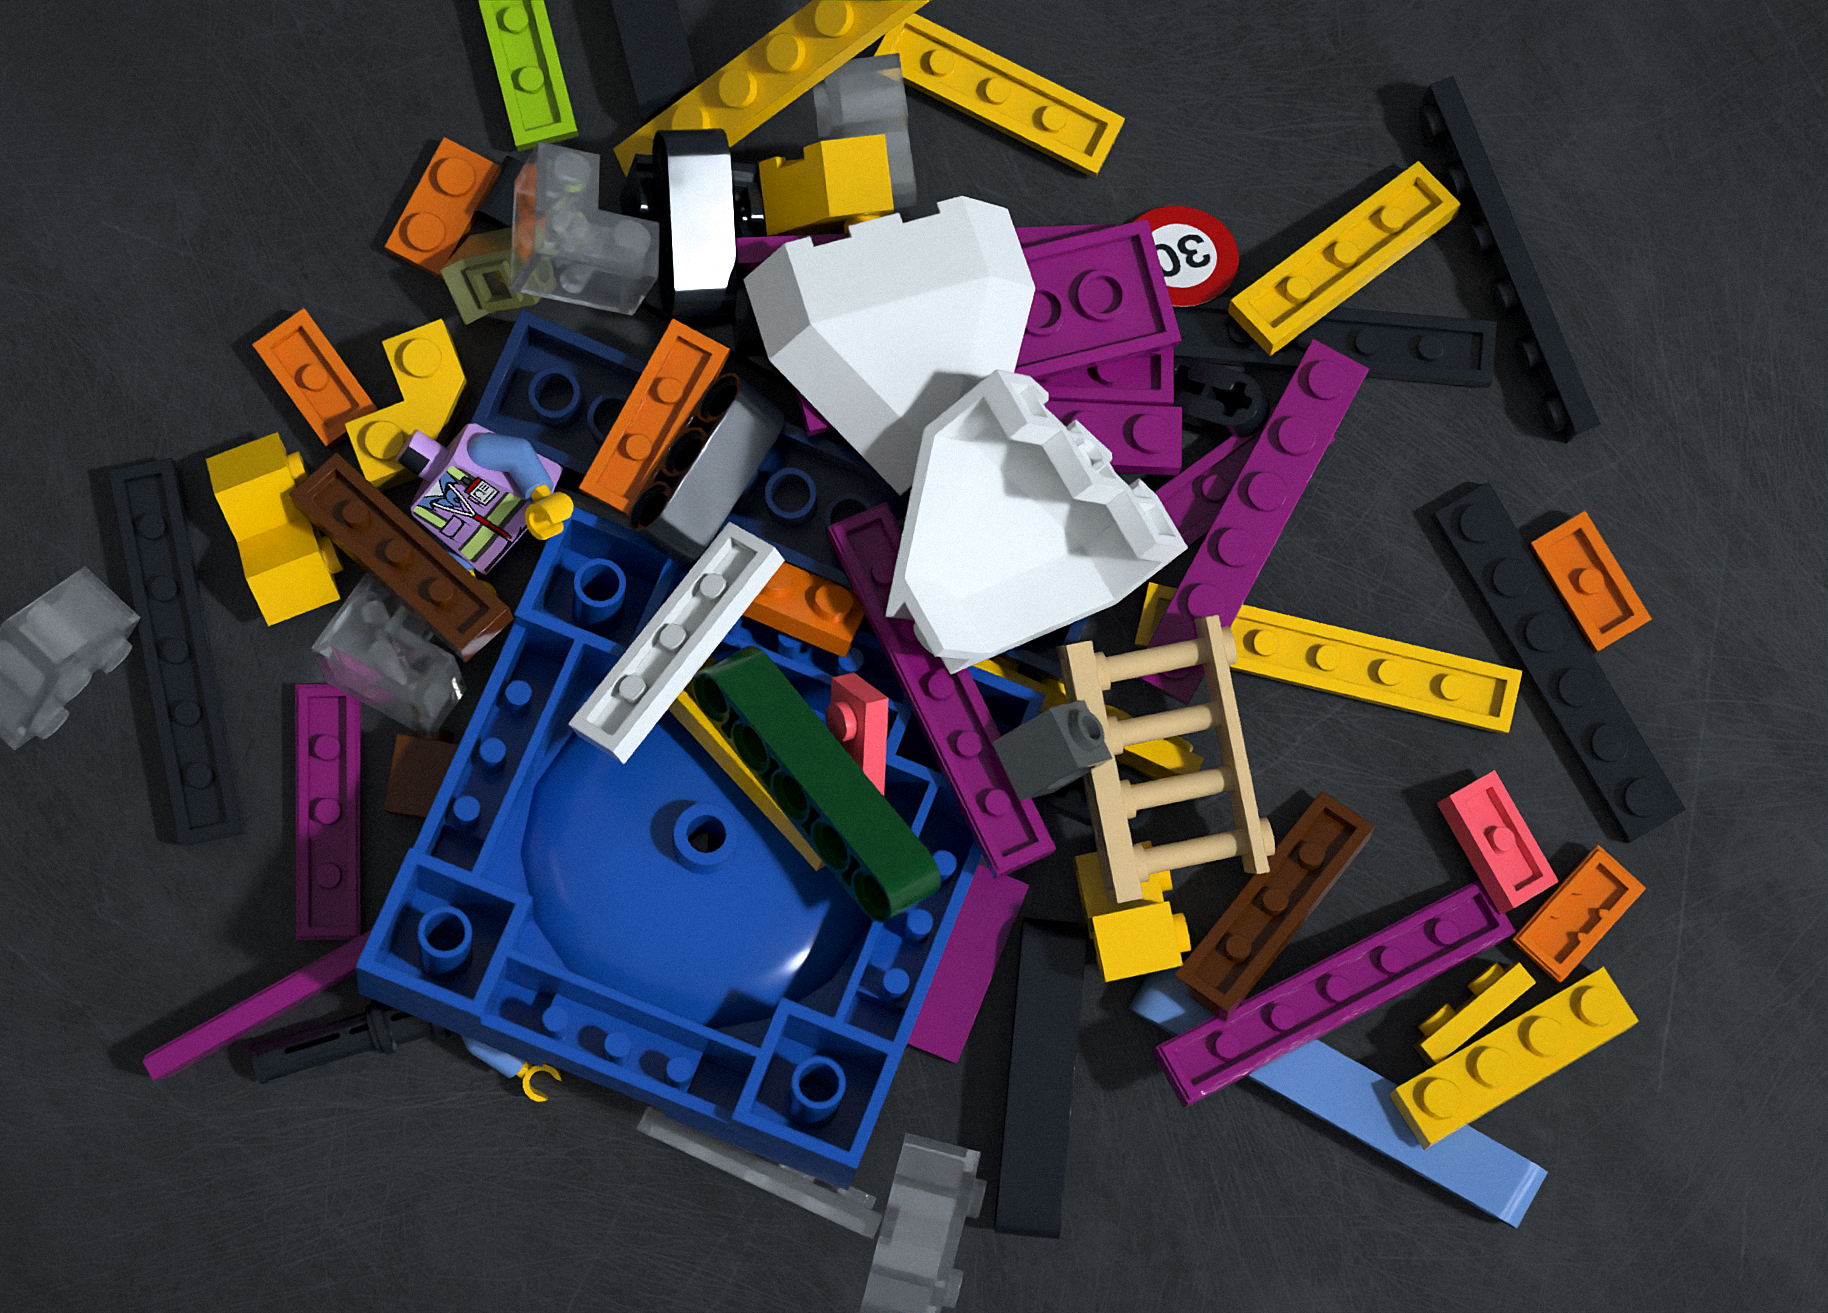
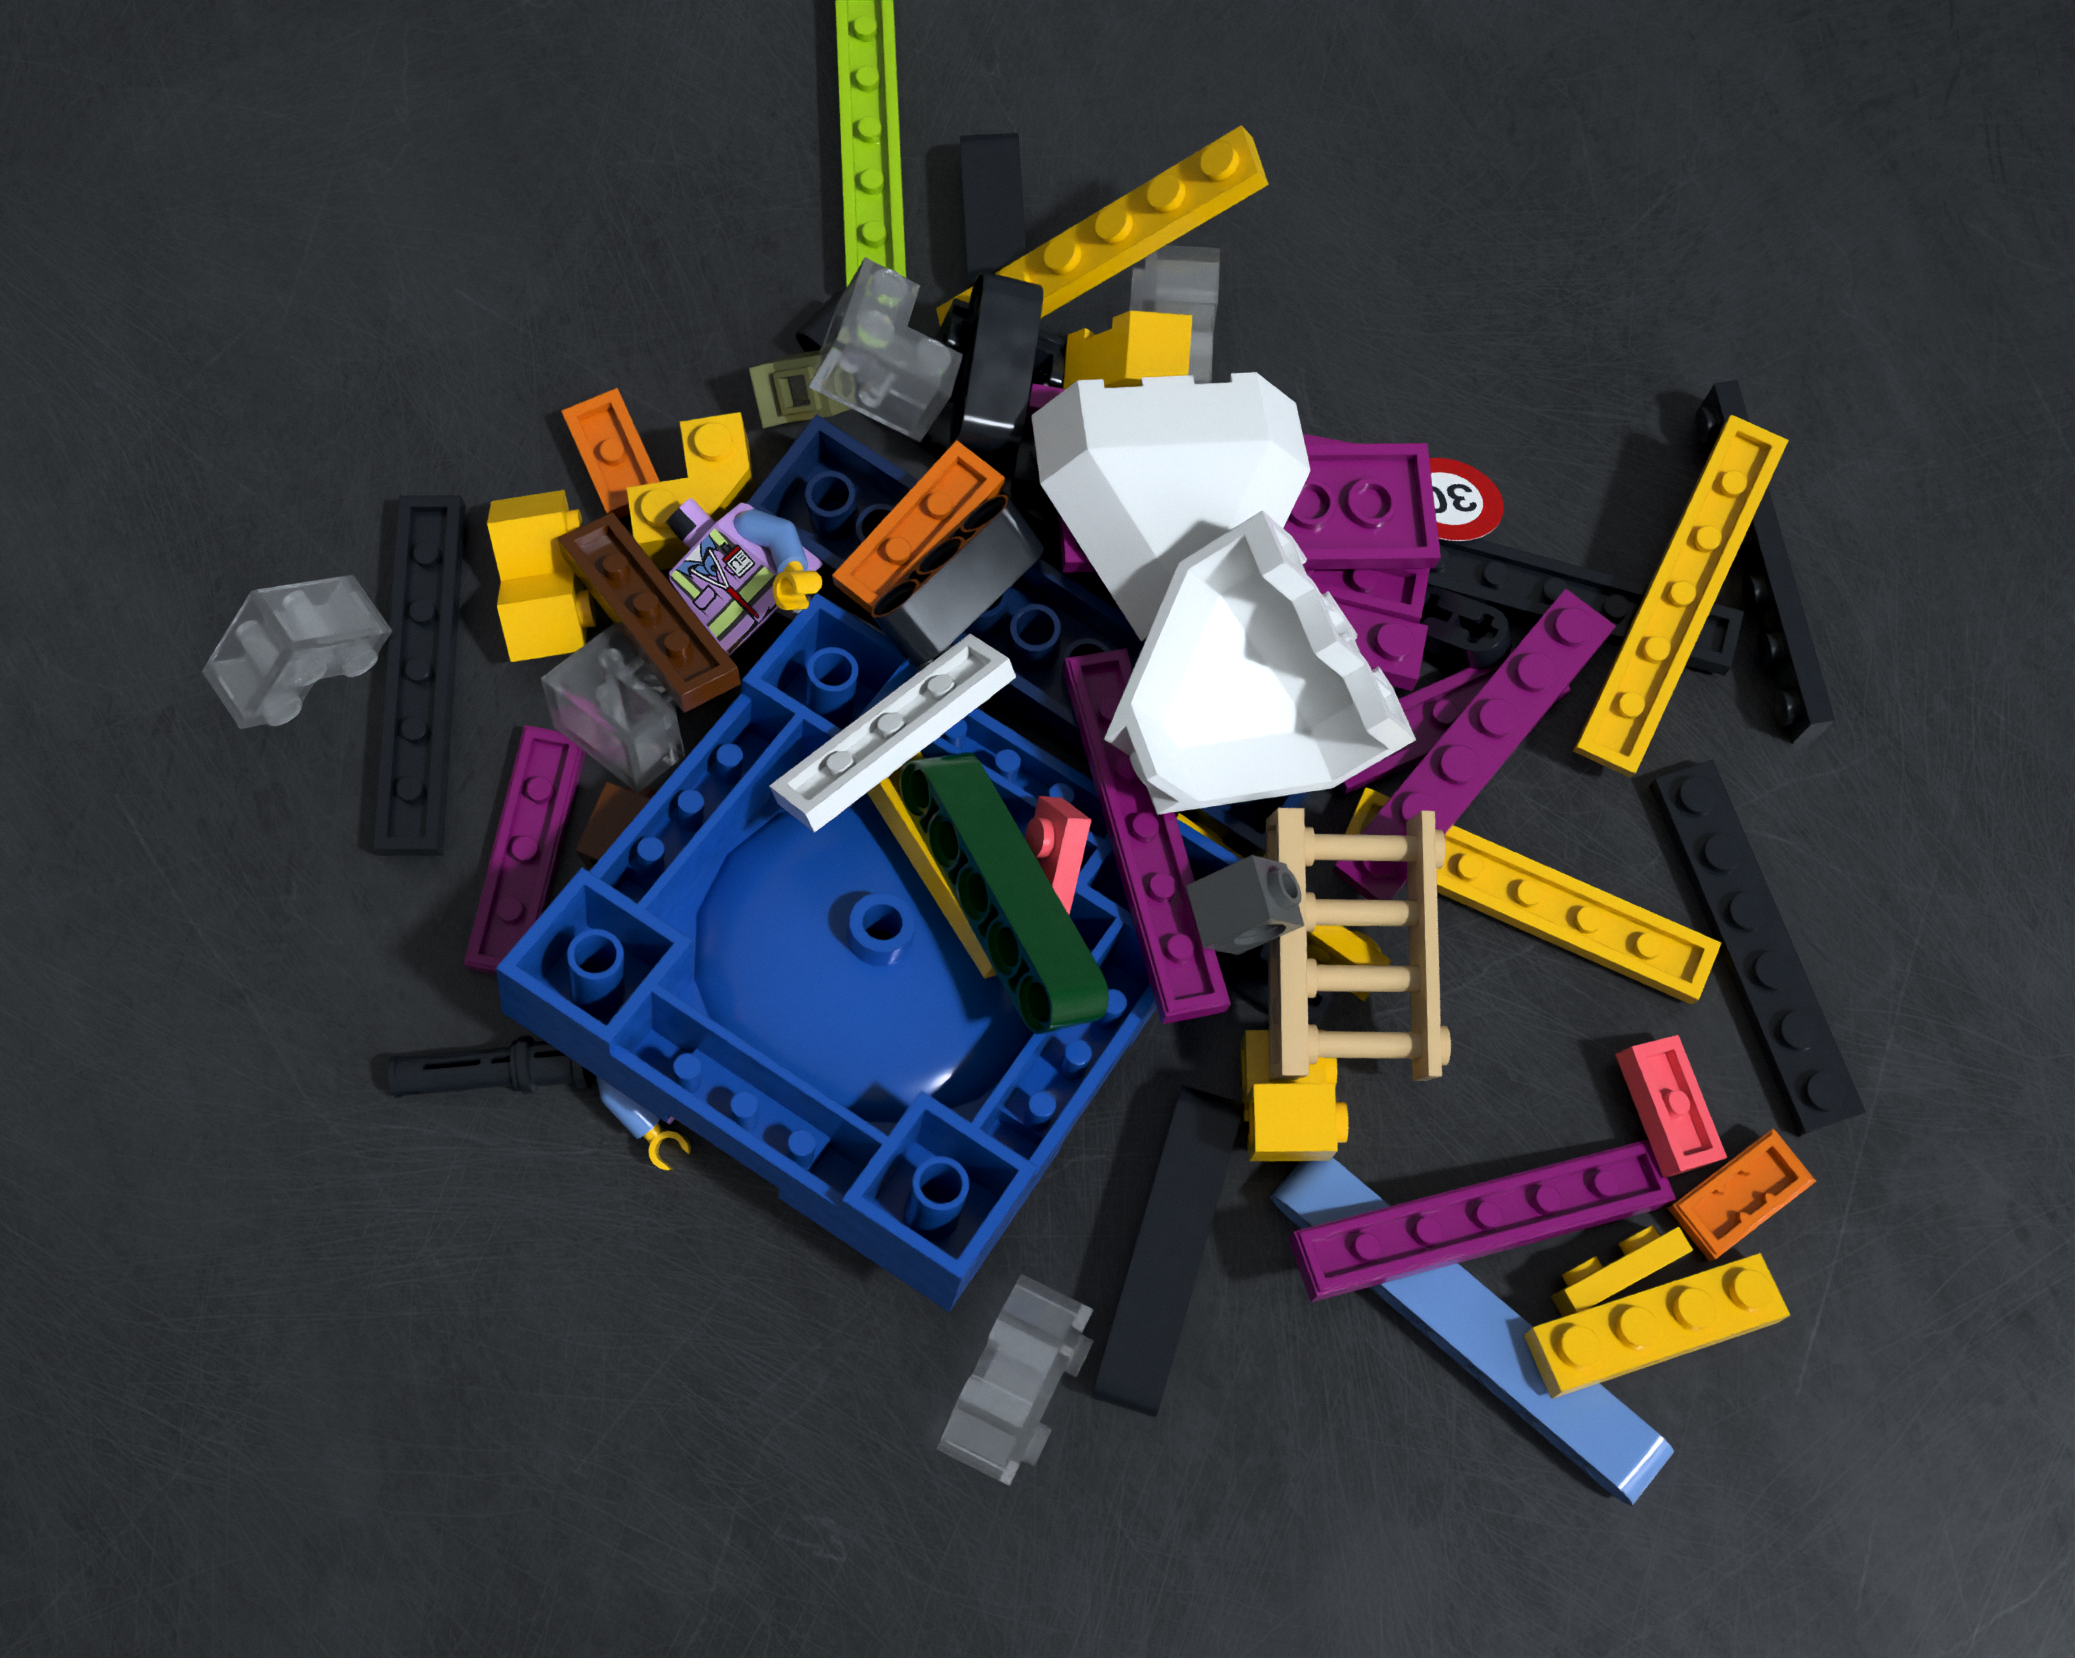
camera: 15 degrees right, 10 degrees down
(255, 1011) = (392, 1027): magenta tile -> none
(441, 208) = (764, 329): orange plate -> none
(809, 609) = (1027, 735): orange plate -> none
(843, 1207) = (893, 1298): clear plate -> none
(967, 964) = (1114, 1121): magenta tile -> none
(1003, 94) = (1310, 329): yellow plate -> none
(1273, 906) = (1434, 1121): reddish brown plate -> none
(1343, 258) = (1595, 527): yellow plate -> none
(1429, 323) = (1680, 596): none -> yellow plate
(1589, 582) = (1799, 873): orange plate -> none

